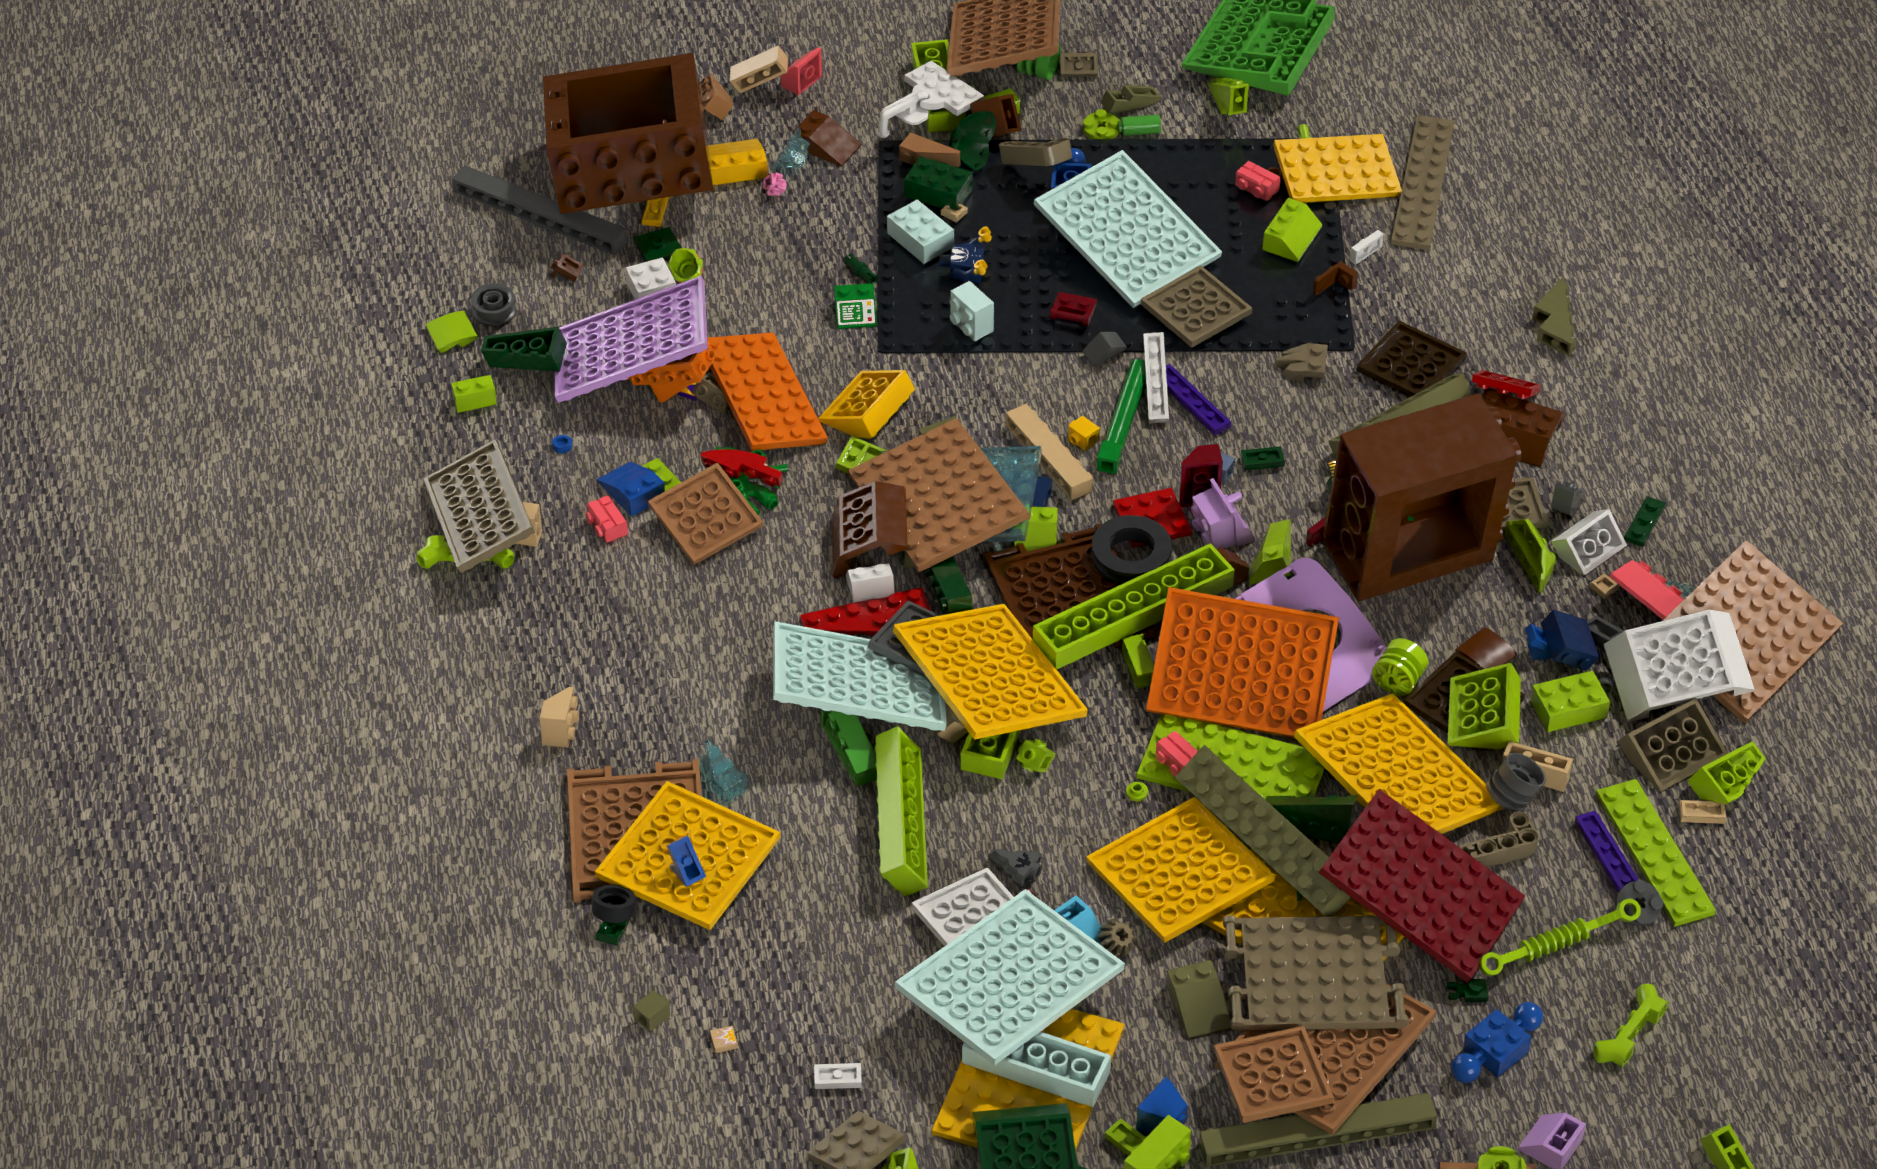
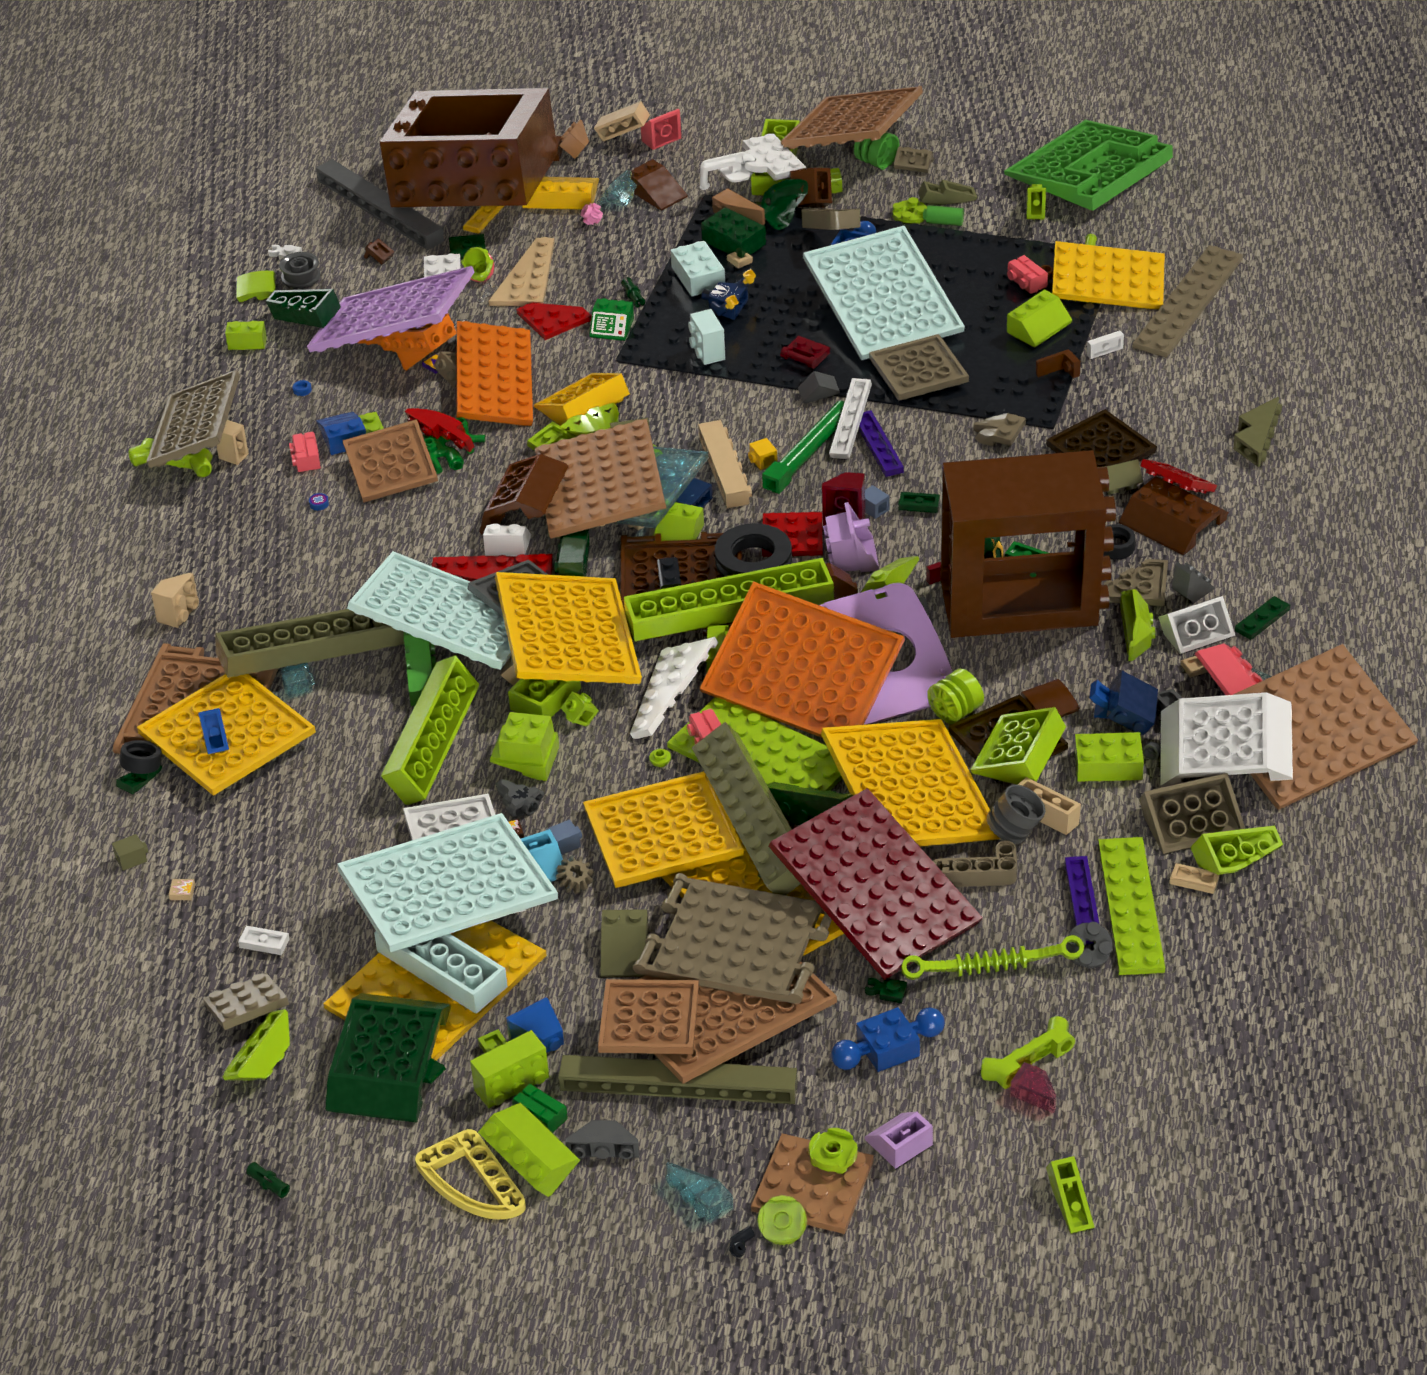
camera: 20 degrees right, 5 degrees down
(464, 285) = (283, 251): none -> white plate
(646, 573) = (318, 501): none -> tile
(722, 740) = (301, 641): none -> olive brick
(740, 271) = (528, 278): none -> tan wing
(789, 315) = (553, 319): none -> red plate
(897, 432) = (591, 423): none -> lime piece
(1003, 807) = (527, 745): none -> lime piece
(1060, 592) = (668, 573): none -> black brick
(1089, 893) = (567, 836): none -> sand blue brick
(1110, 704) = (671, 676): none -> white wing
(1654, 1061) = (1034, 1087): none -> clear pink slope

